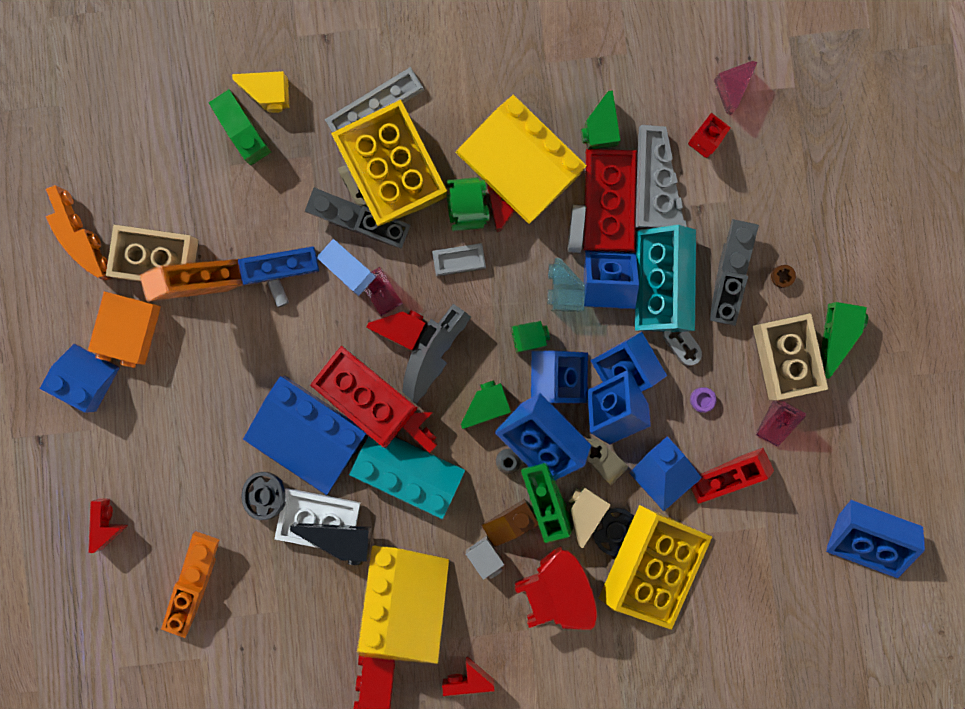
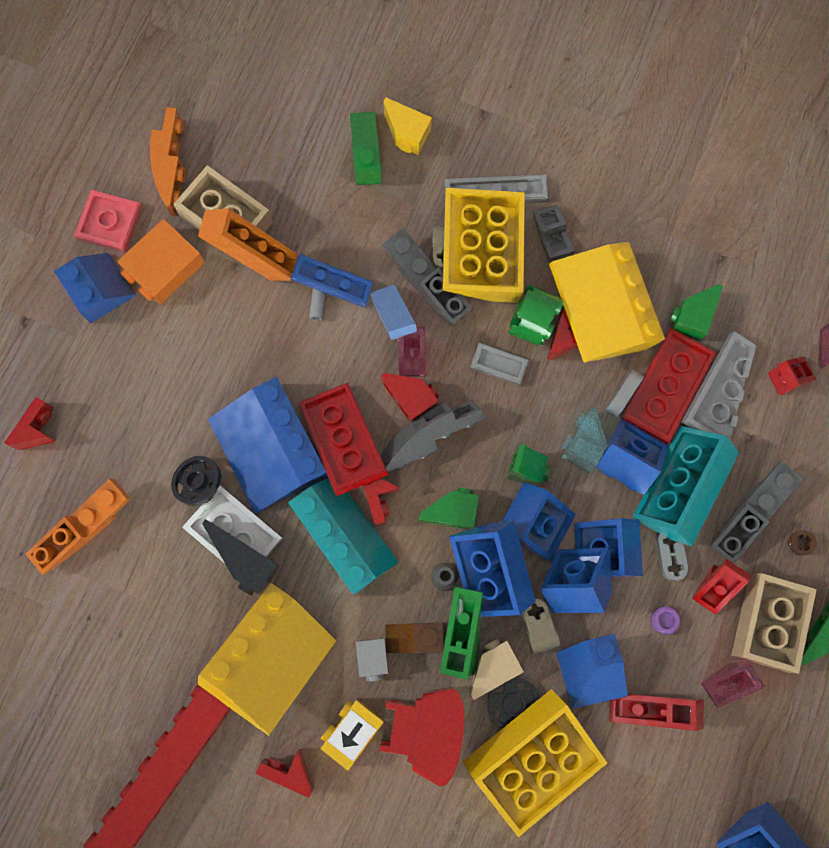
camera: 25 degrees right, 10 degrees down
(56, 315) = (108, 221): none -> coral tile
(444, 118) = (552, 233): none -> dark grey slope
(501, 624) = (351, 734): none -> brick
(733, 349) = (720, 586): none -> red slope

